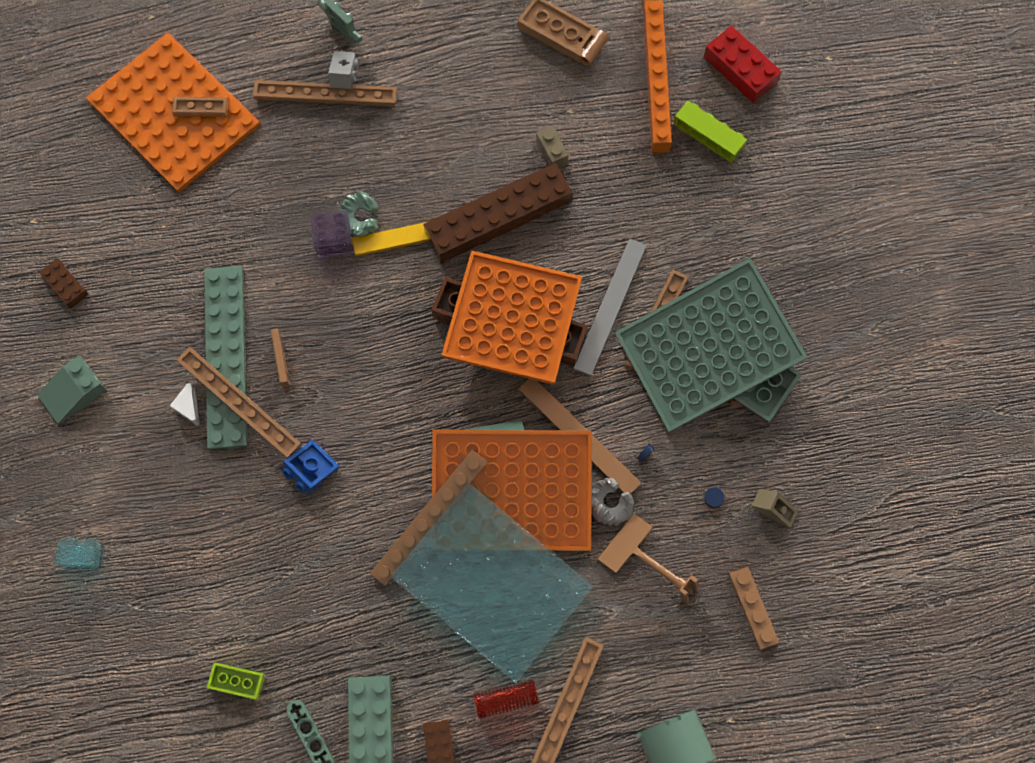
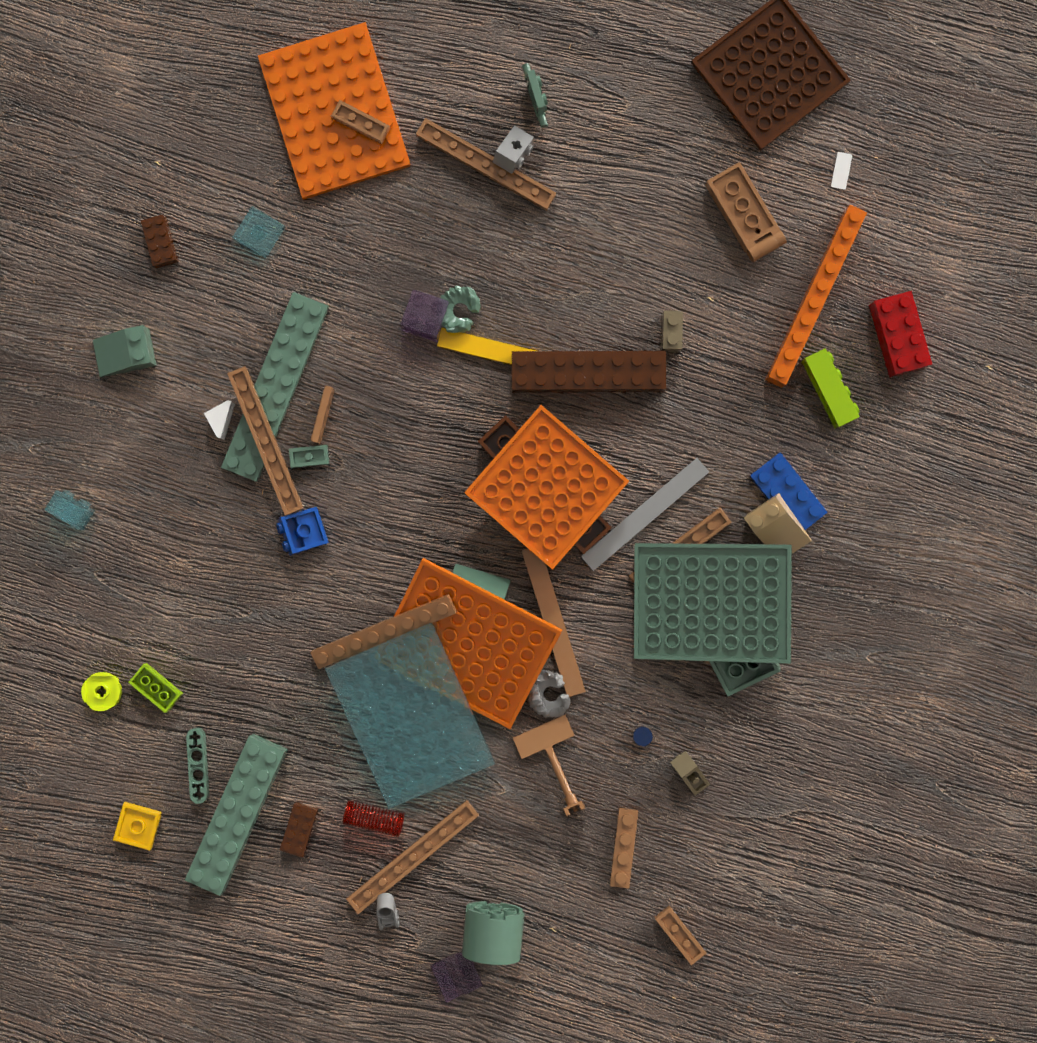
camera: 30 degrees right, 15 degrees up
(150, 235) = (258, 232): none -> clear light blue plate
(173, 707) = (94, 699): none -> neon yellow plate
(285, 399) = (309, 456): none -> sand green plate
(645, 453) = (603, 667): dark blue tile -> none
(723, 231) = (779, 477): none -> blue plate
(726, 253) = (777, 524): none -> tan slope
(850, 662) = (680, 935): none -> medium nougat plate

